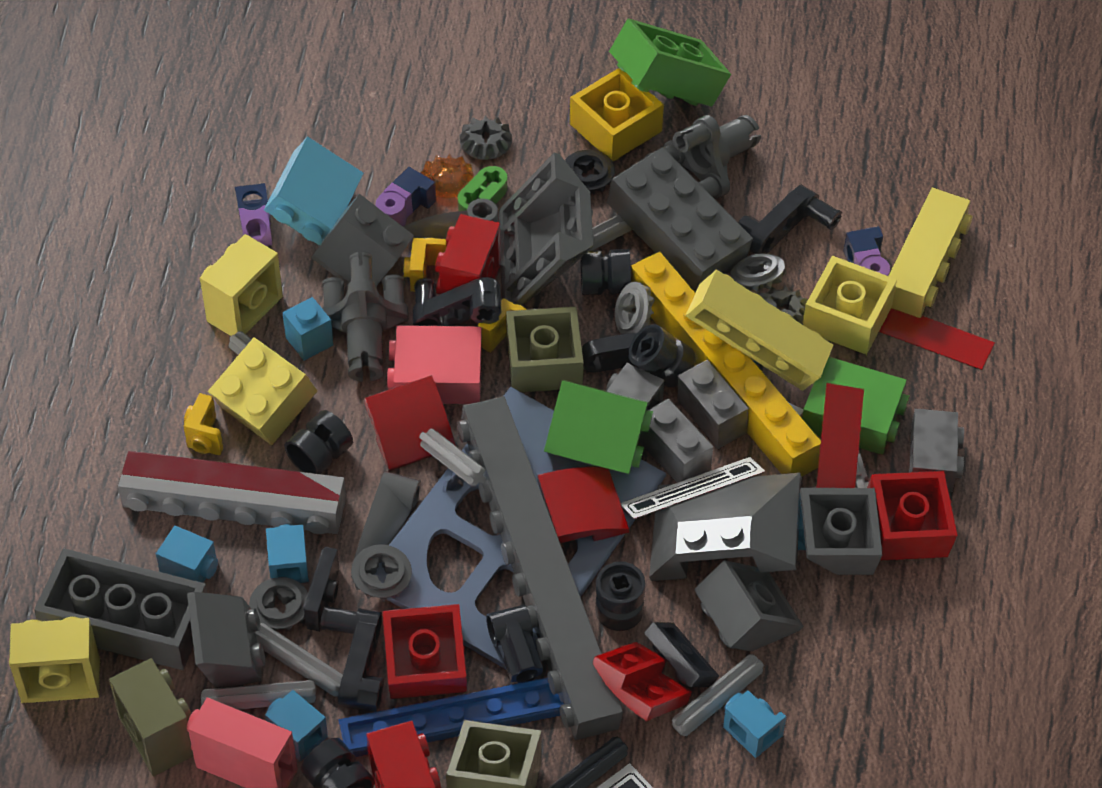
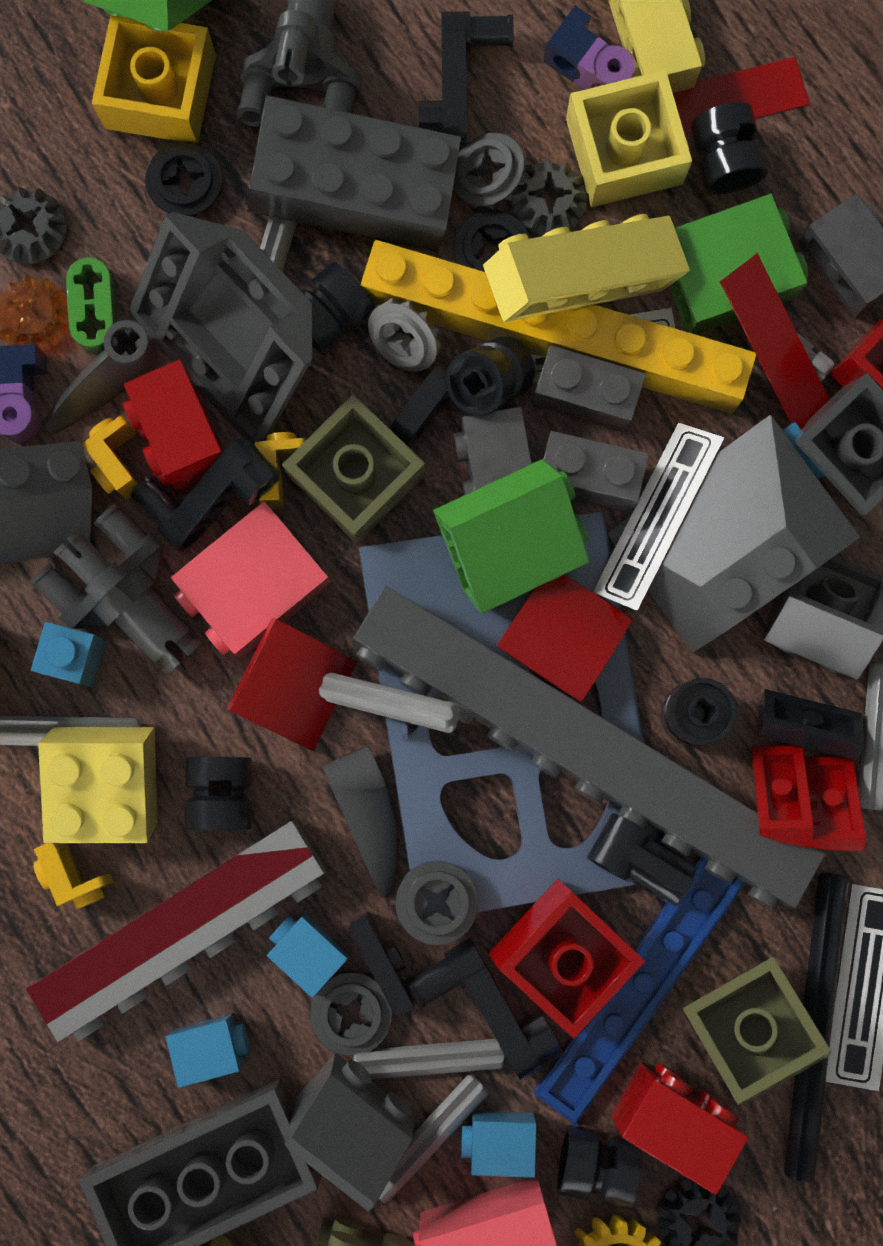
camera: 40 degrees left, 30 degrees up
(906, 348) = (727, 141): none -> black wheel

